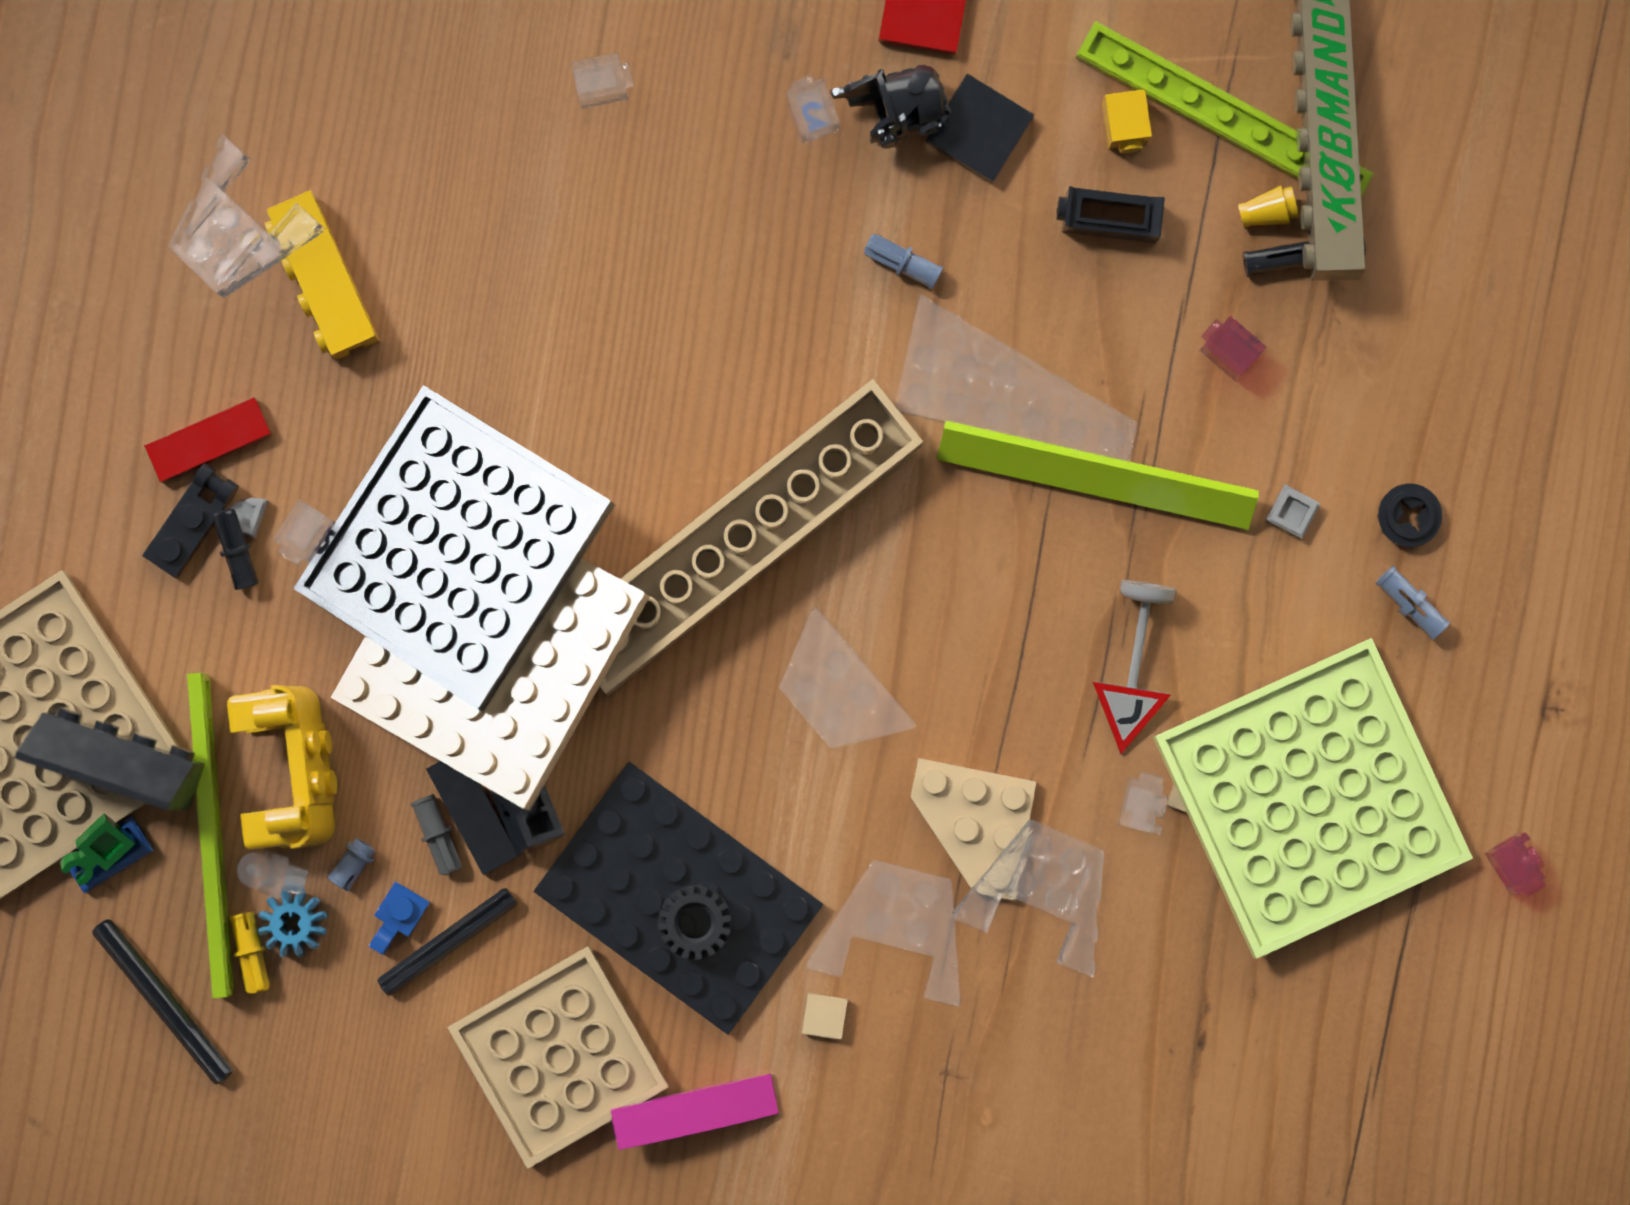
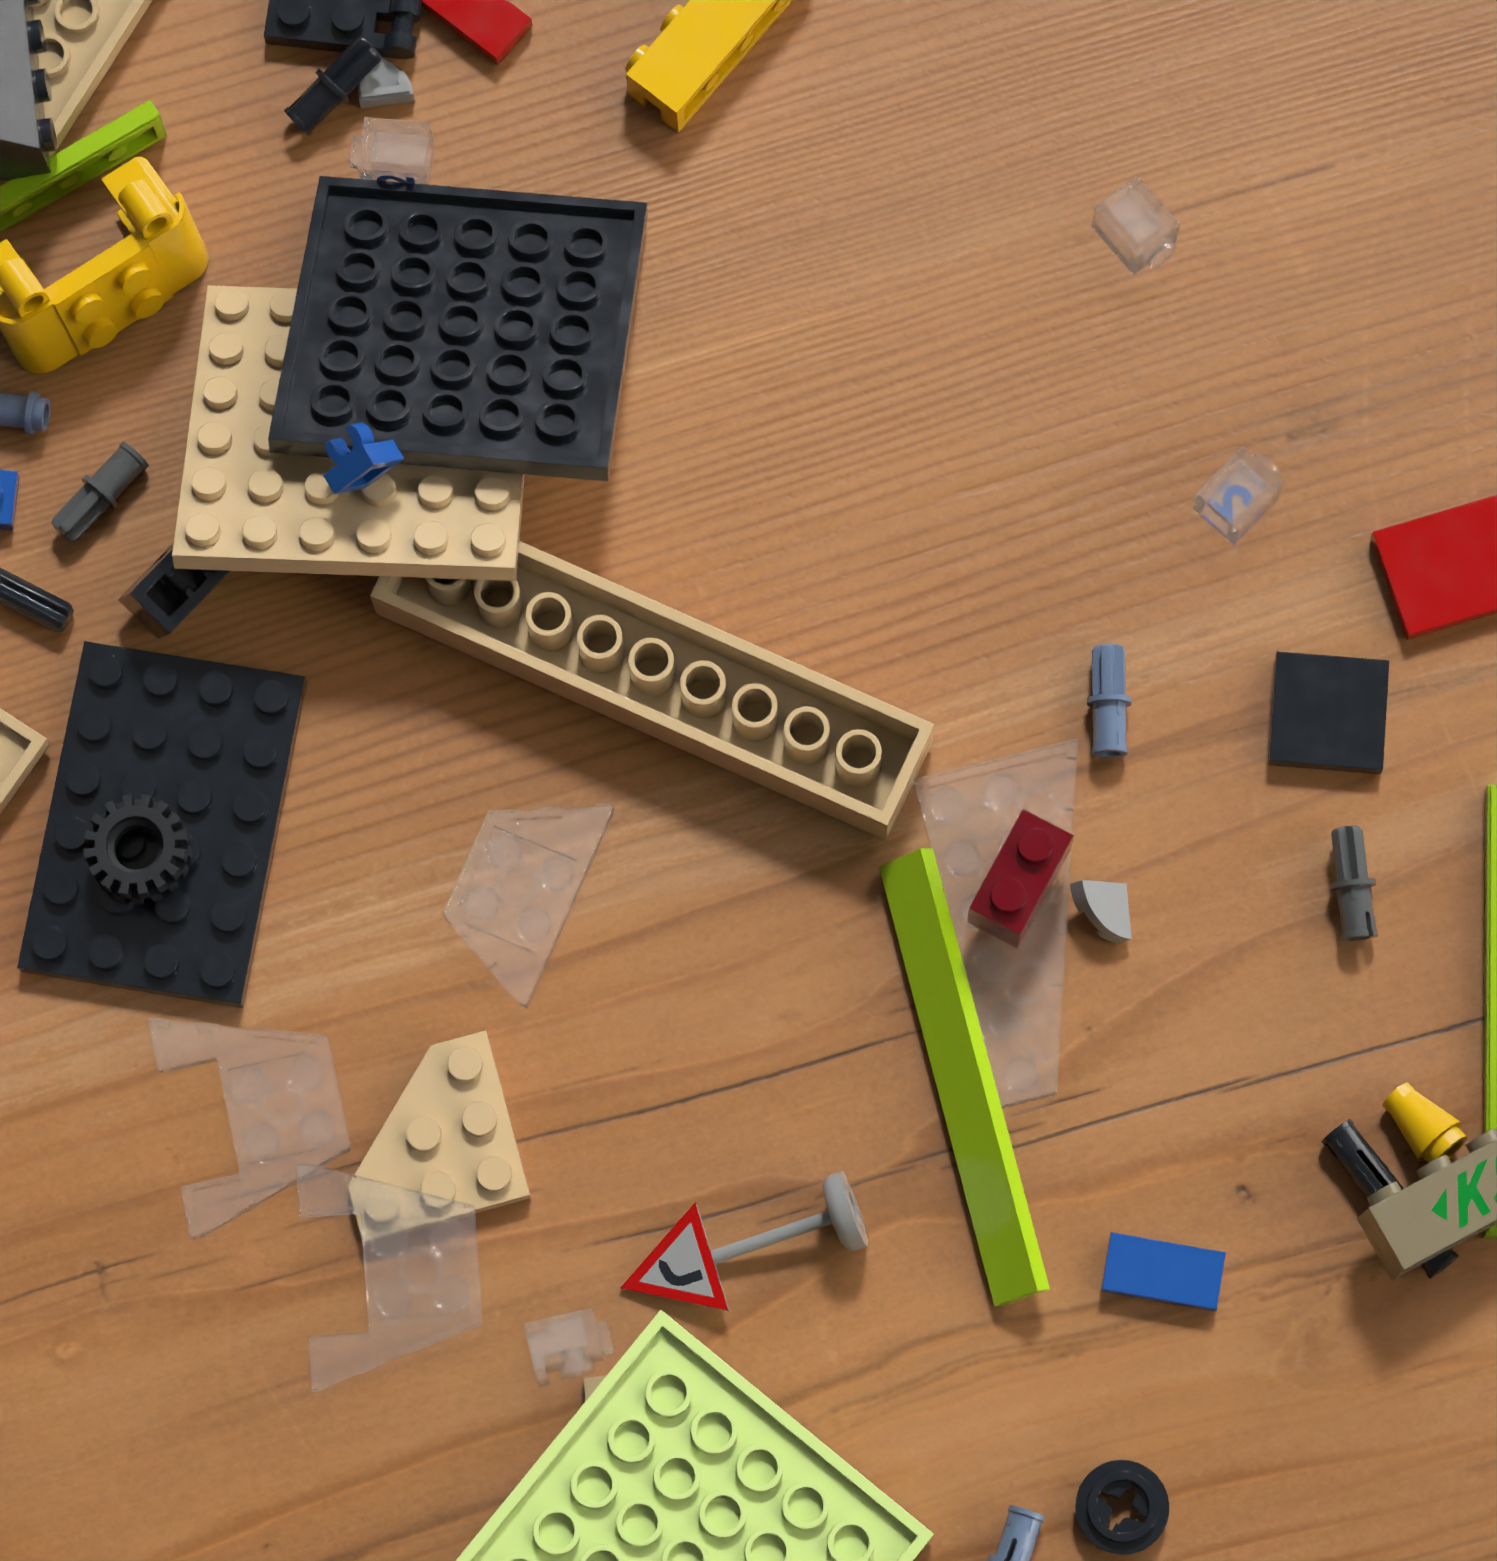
camera: 75 degrees right, 10 degrees down
(473, 817) = (140, 529): black tile -> none
(527, 657) = (363, 464): none -> blue tile
(824, 1016) = (99, 1077): tan tile -> none
(902, 103) = (1308, 597): black helmet -> none
(997, 376) = (1020, 878): none -> dark red brick
(1035, 333) = (1105, 907): none -> light grey tile
(1070, 208) = (1309, 981): black window -> none
(1098, 171) = (1353, 885): none -> dark grey axle
(1126, 120) = (1437, 886): yellow brick -> none
(1231, 347) = (1218, 1164): clear pink brick -> none
(1278, 415) = (1163, 1272): none -> blue tile
(1292, 512) = (1047, 1353): light grey tile -> none

